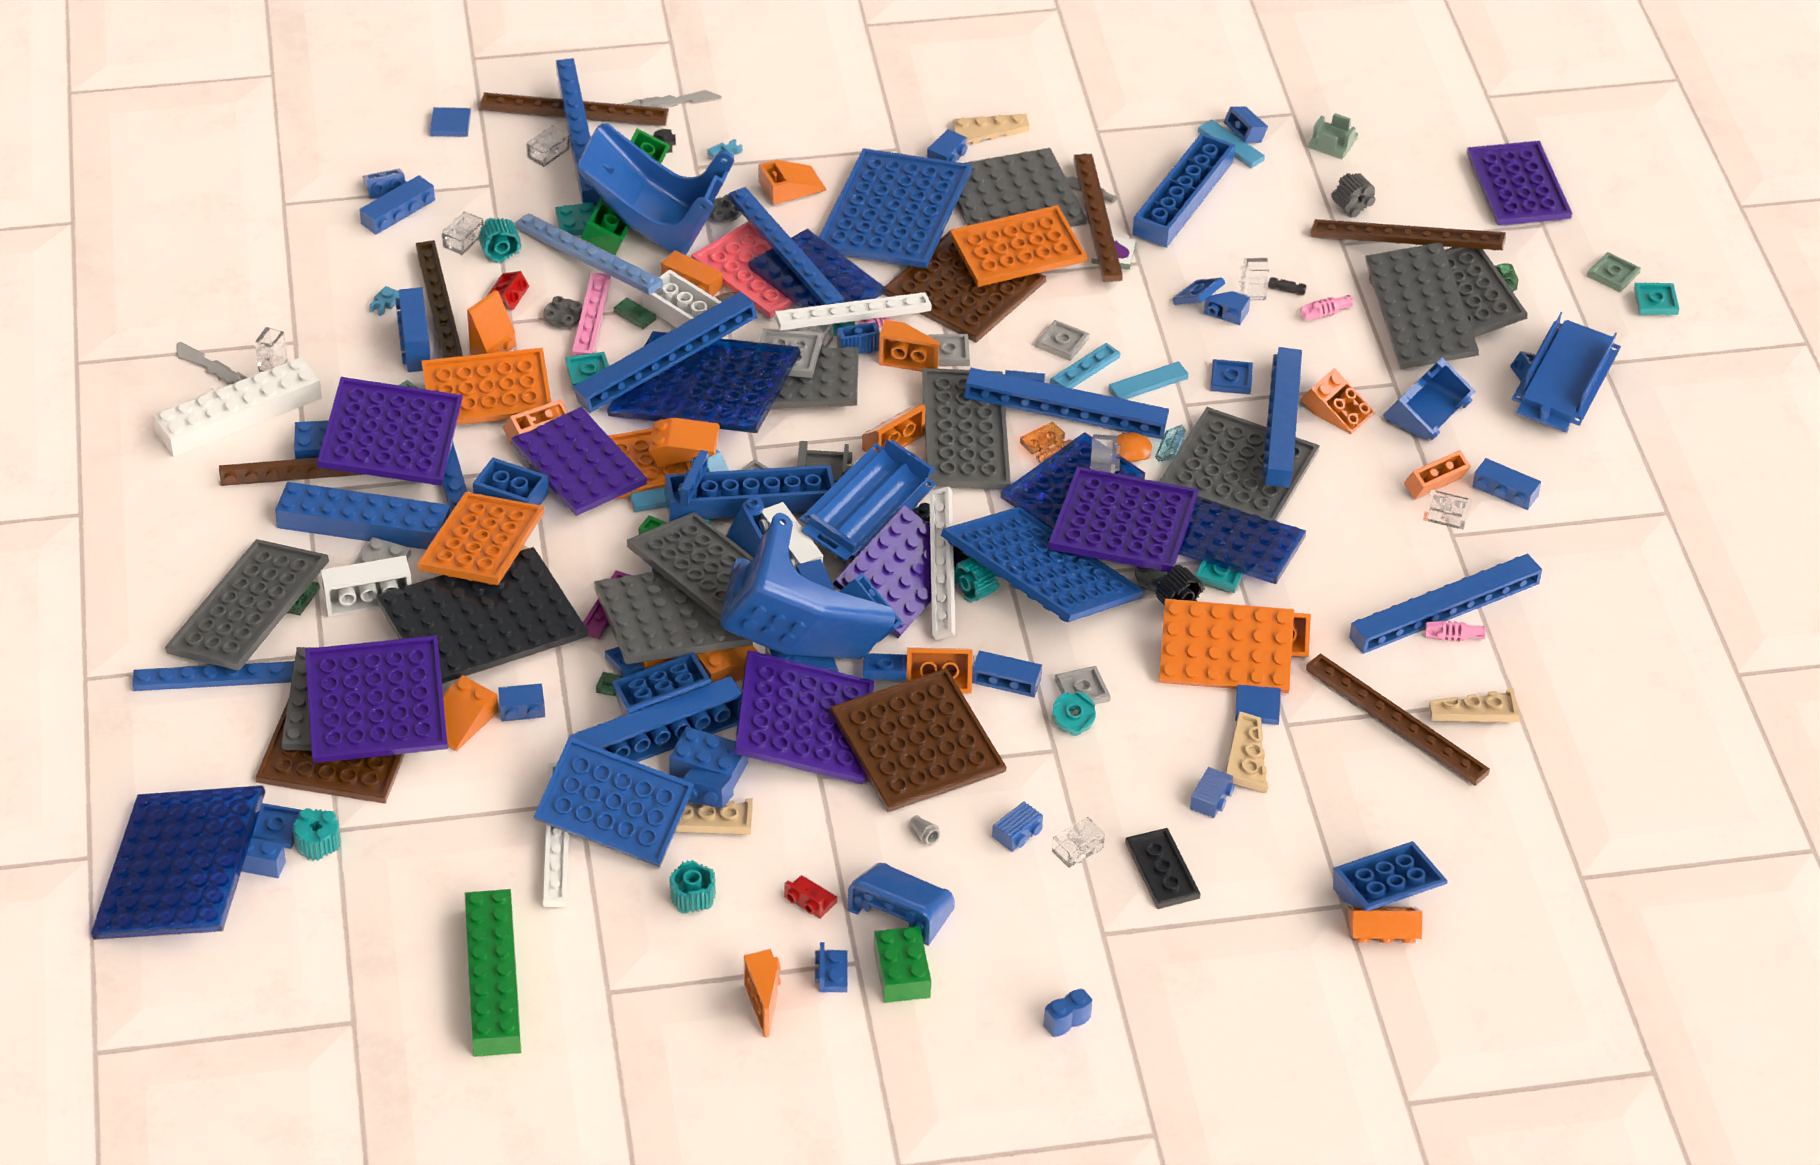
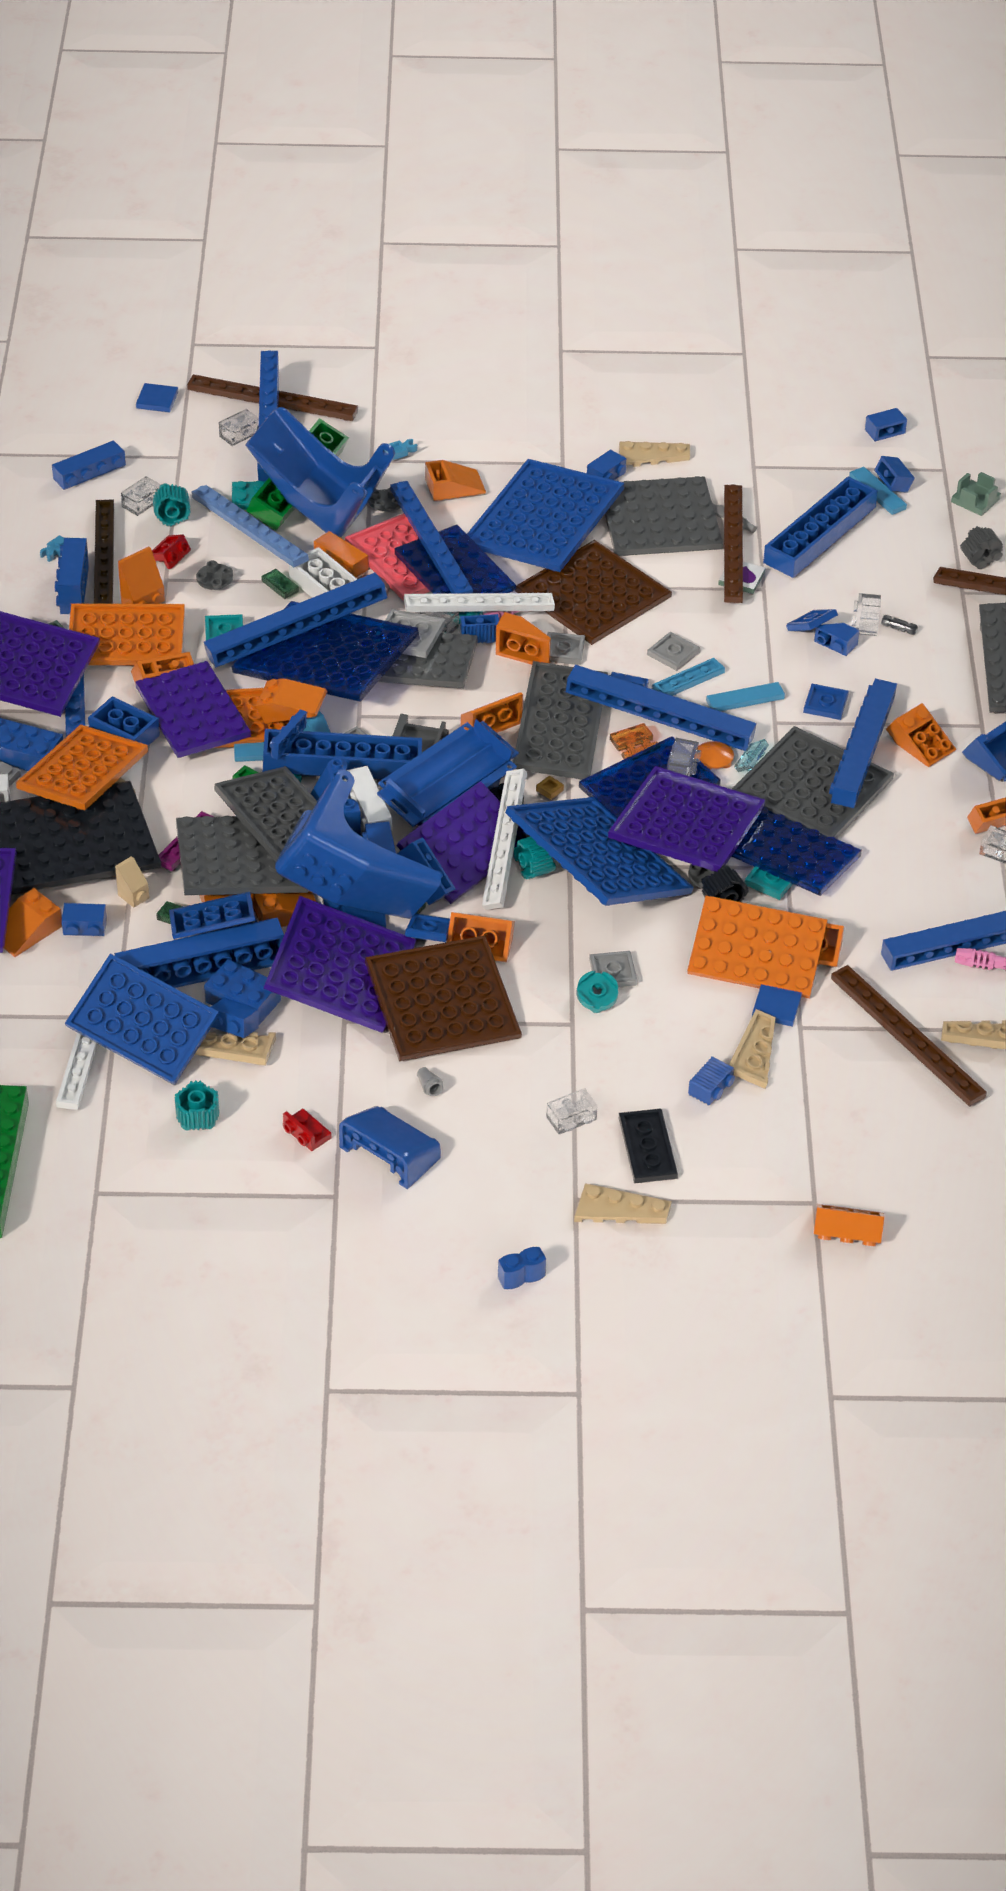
camera: 10 degrees right, 0 degrees up
(383, 182) = (81, 443): blue bracket -> none
(563, 657) = (131, 882): none -> tan slope
(591, 314) = (240, 580): bright pink plate -> none
(616, 659) = (185, 900): blue plate -> none
(666, 136) = (349, 430): black plate -> none
(669, 100) = (363, 399): light grey sword -> none
(762, 984) = (239, 1205): orange slope -> none
(833, 969) = (309, 1199): blue bracket -> none
(902, 964) = (375, 1202): green brick -> none
(971, 502) = (550, 787): none -> pearl gold plate
(1006, 673) = (543, 948): blue brick -> none
(1018, 245) = (650, 560): orange plate -> none
(1018, 826) = (518, 1089): brick -> none
(1141, 934) = (612, 1204): none -> tan wing
(1223, 71) = (885, 424): none -> blue brick
(1325, 307) = (931, 648): bright pink hinge -> none
(1386, 877) = (858, 1180): blue slope -> none

